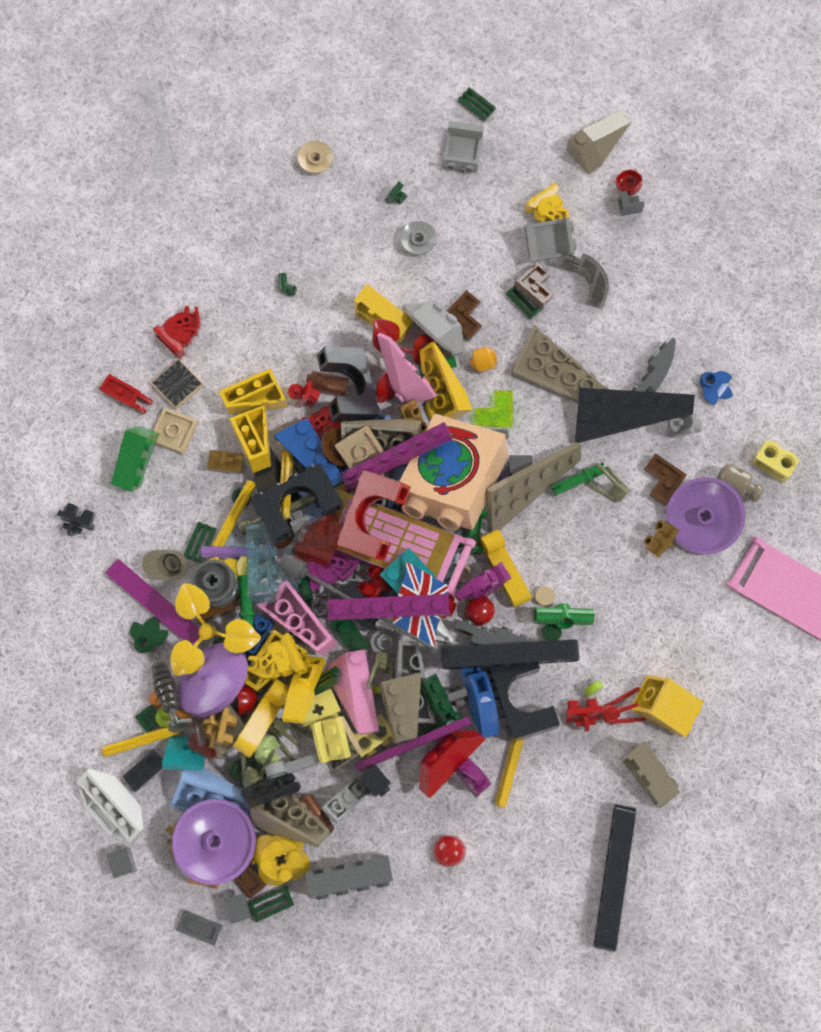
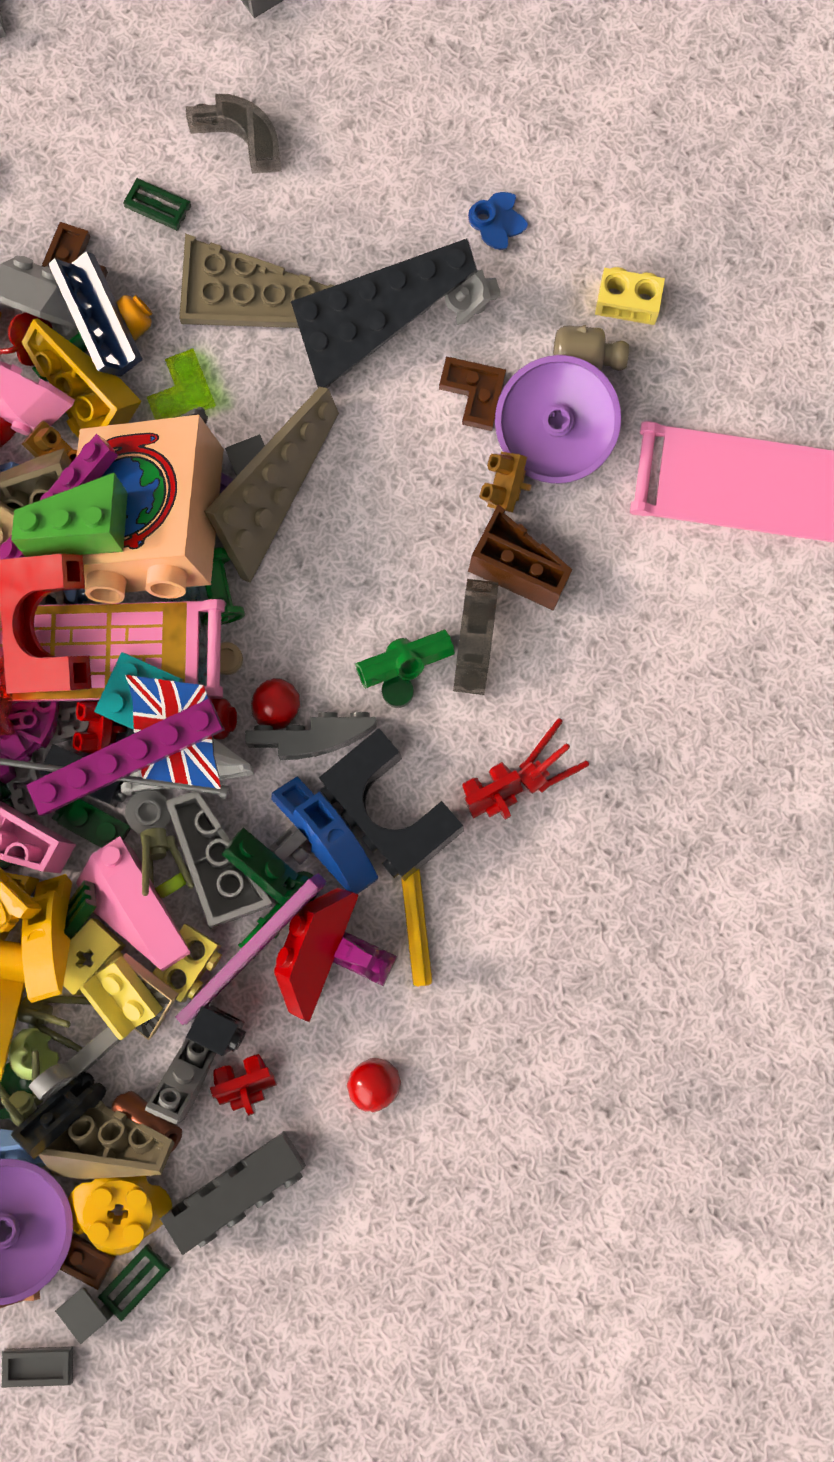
camera: 20 degrees left, 5 degrees up
(376, 821) = (245, 1089): none -> red hips
(402, 706) = (207, 899): dark tan wedge -> none
(414, 466) = (74, 521): none -> bright green wedge
(467, 352) = (98, 315): none -> dark blue fence
(484, 583) = (263, 659): magenta piece -> none
(495, 552) = (286, 622): yellow beam -> none
(510, 654) = (344, 751): black beam -> none
(531, 284) = (157, 173): plate -> none
(544, 596) = (365, 641): tan tile -> none
(547, 205) = (138, 49): yellow piece -> none
(549, 239) = (156, 93): light grey panel -> none
(586, 475) = (349, 439): green pin -> none
(593, 688) = (493, 749): lime tile -> none
(609, 620) = (475, 636): none -> clear smoke arch
(615, 878) = (637, 1018): black beam -> none
(619, 489) = (414, 433): olive plant -> none
(650, 588) = (519, 562): none -> reddish brown wedge
(651, 774) = (629, 841): dark tan wedge -> none
(657, 368) = (399, 223): dark grey slope -> none
(667, 705) = (612, 727): yellow slope -> none

